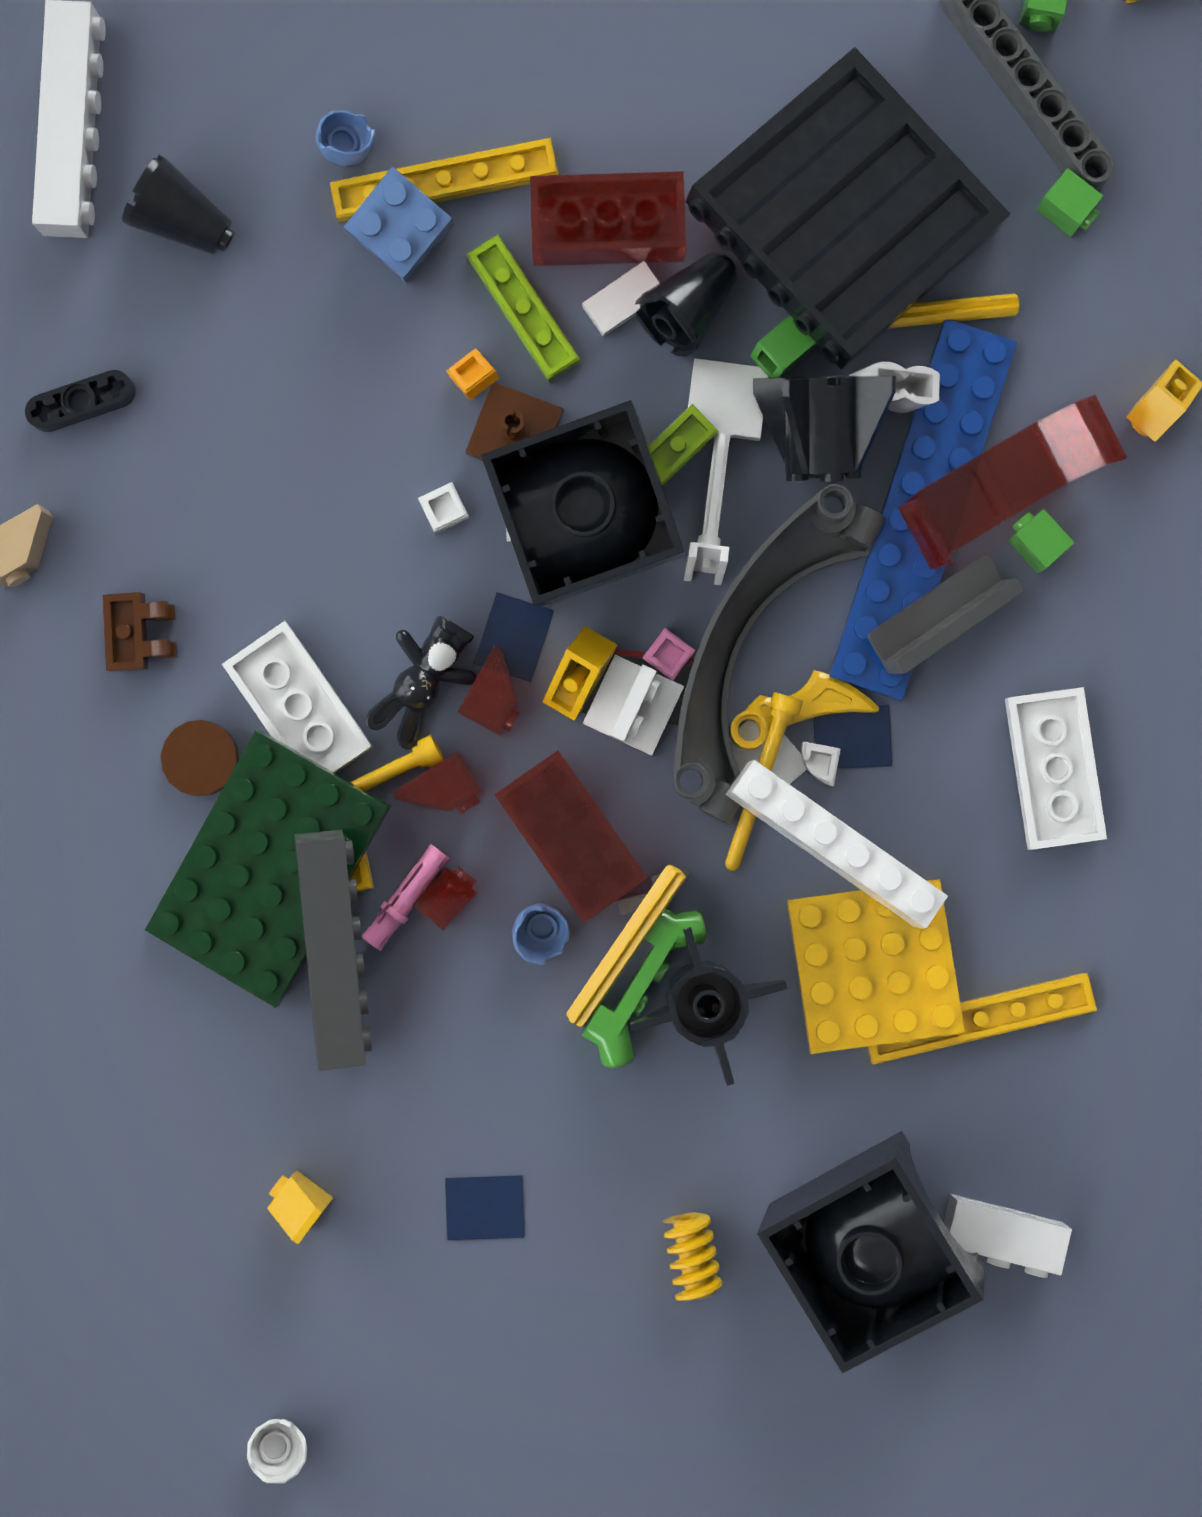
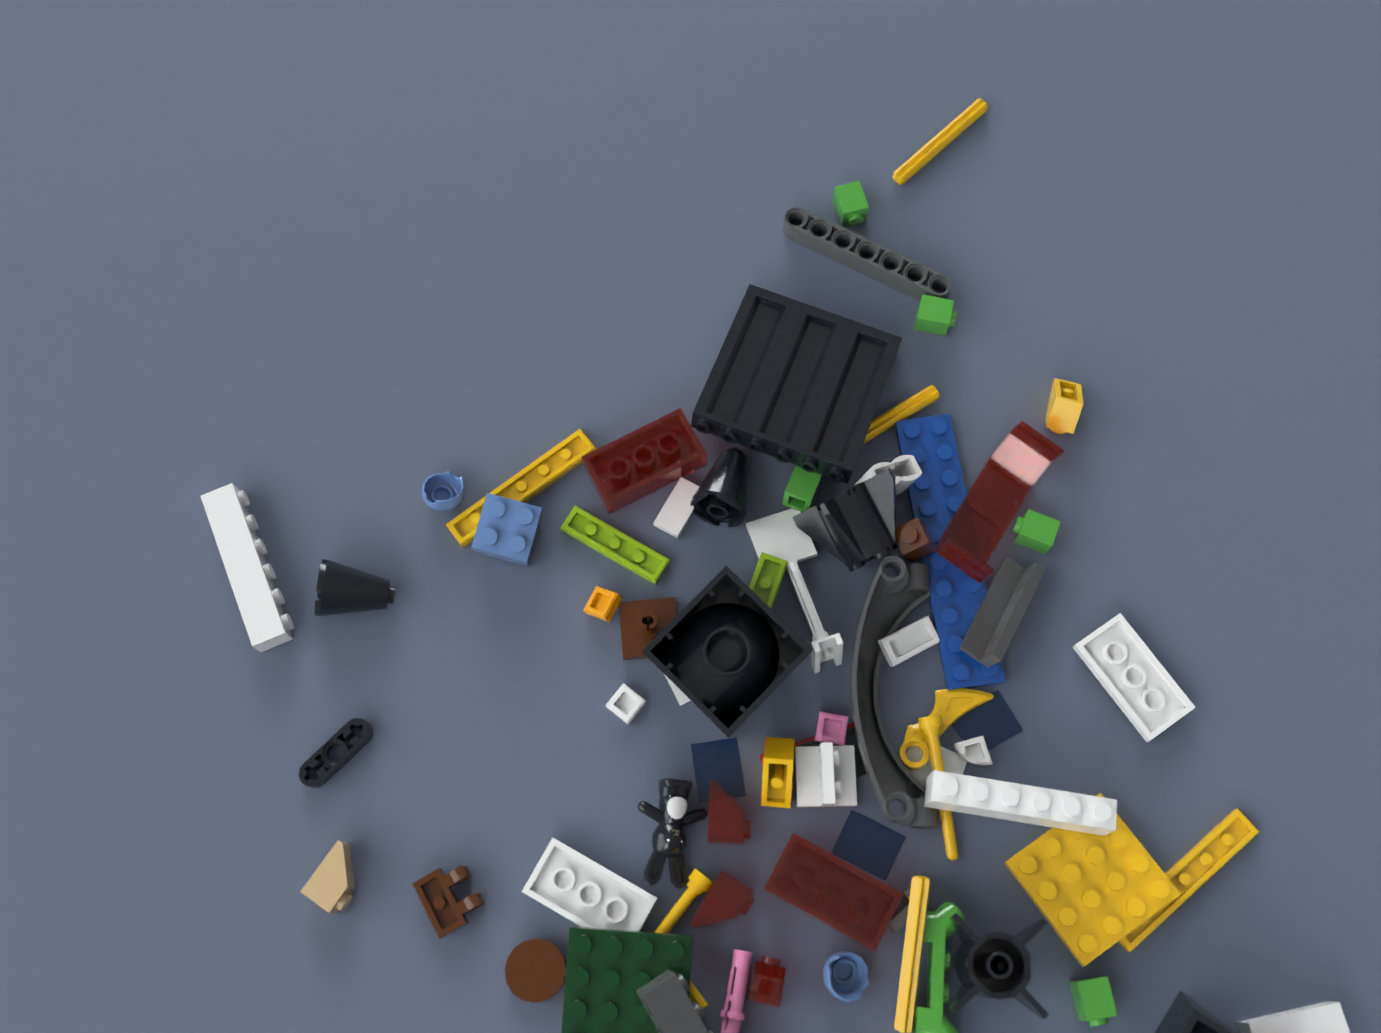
camera: 25 degrees left, 15 degrees down
(643, 805) = (868, 845): none -> dark blue sticker
(802, 1093) = (1093, 1000): none -> bright green brick
(813, 597) = (909, 641): none -> white tile
(884, 479) = (915, 539): none -> reddish brown brick

